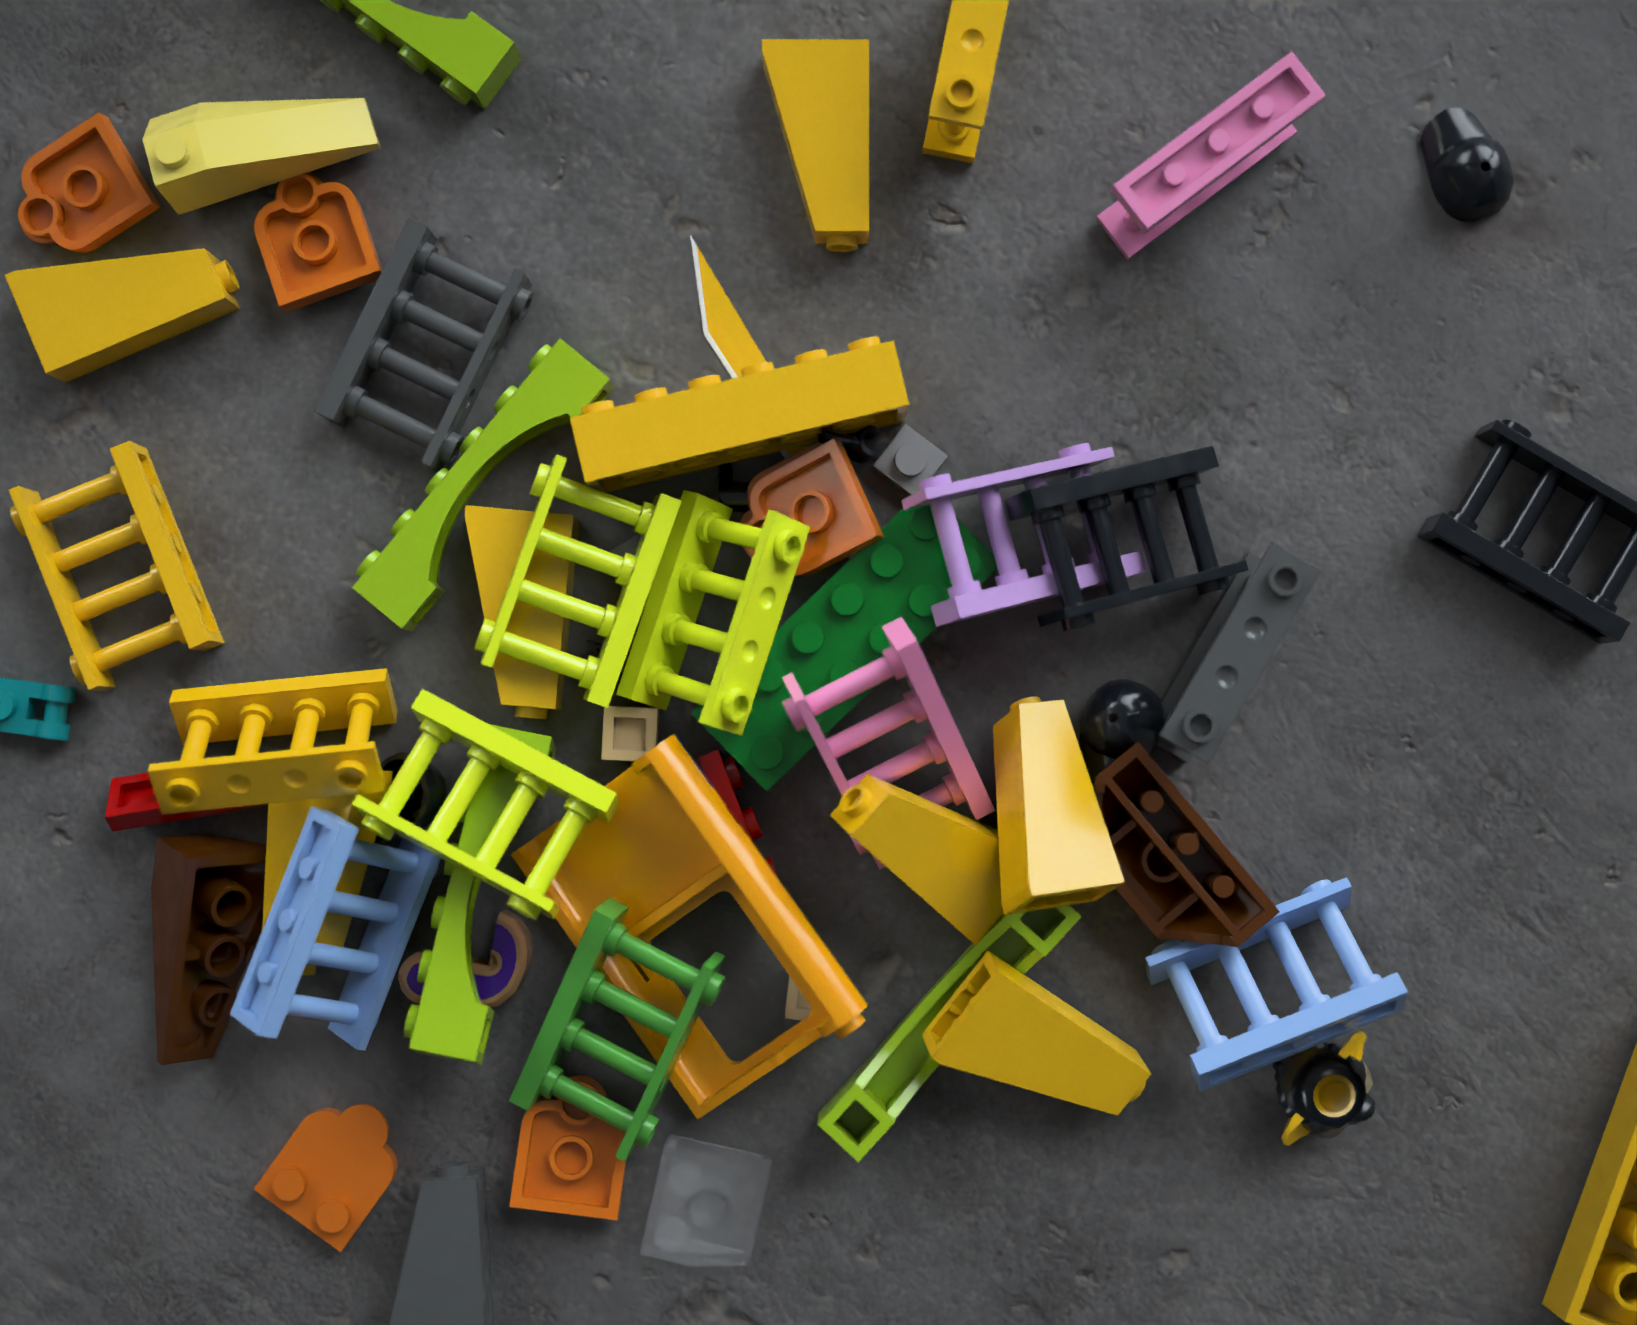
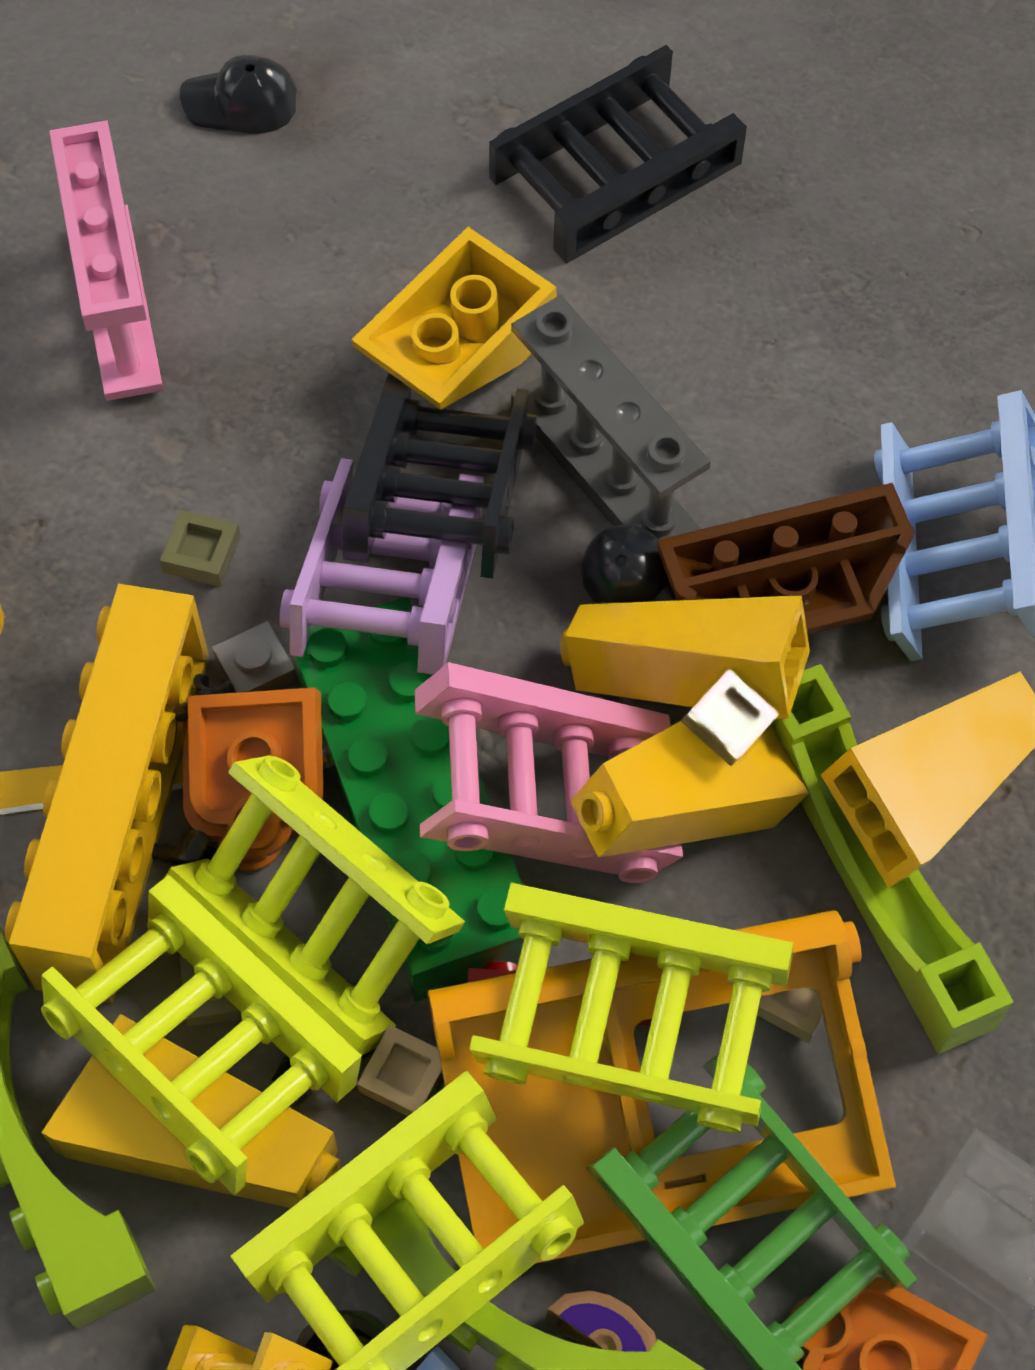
camera: 65 degrees left, 25 degrees down
(765, 913) = (681, 951): none -> neon yellow fence
(981, 871) = (730, 717): none -> clear smoke tile
(982, 372) = (200, 548): none -> olive tile
(1287, 481) = (455, 321): none -> yellow slope

